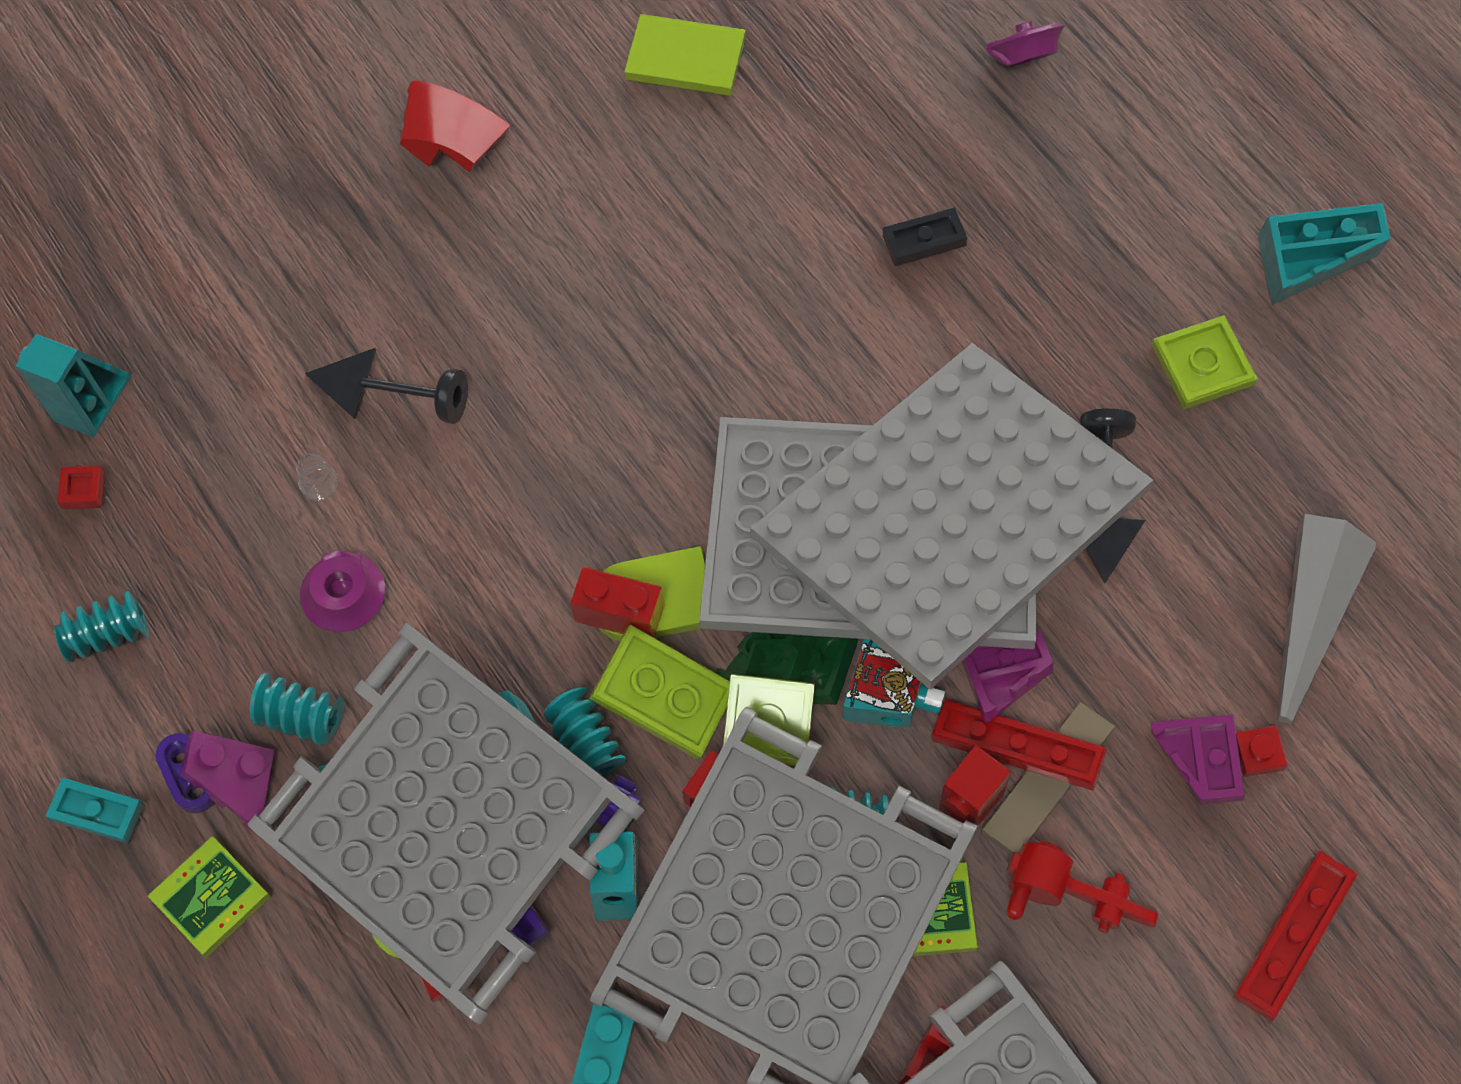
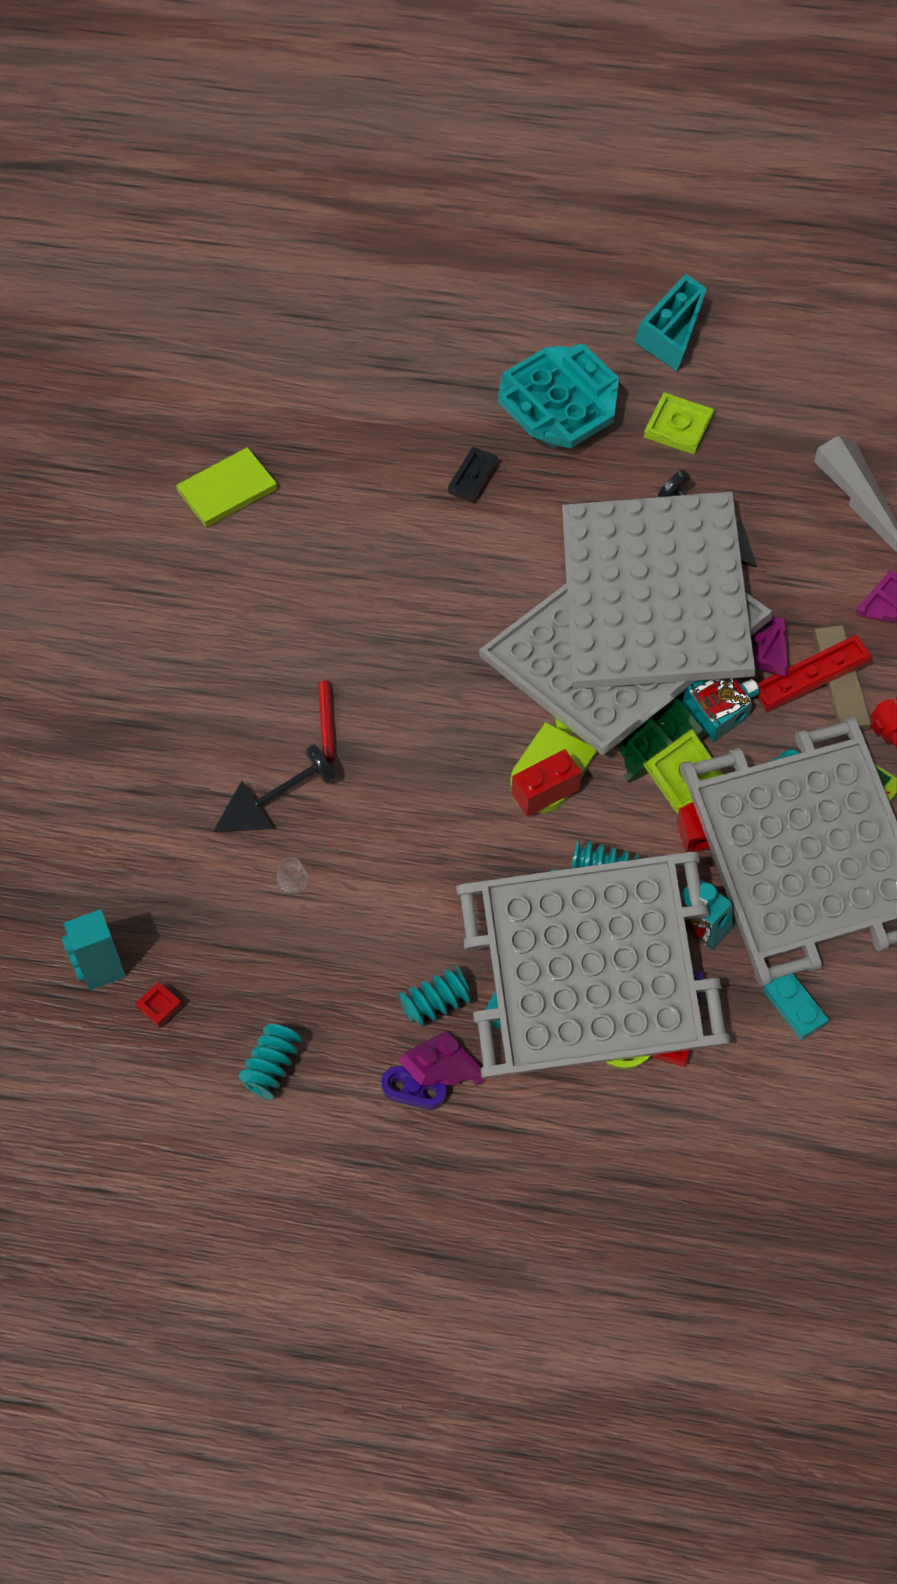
camera: 50 degrees left, 5 degrees down
(94, 810) = (386, 1156): teal plate -> none
(209, 896) = (503, 1136): tile -> none
(342, 591) = (382, 917): magenta piece -> none
(448, 123) = (136, 628): slope -> none
(512, 360) = (326, 721): none -> red bar
(662, 692) = (617, 806): lime tile -> none
(974, 787) = (823, 704): red brick -> none
(1026, 44) = (413, 336): magenta piece -> none
(1110, 196) = (560, 395): none -> teal piece

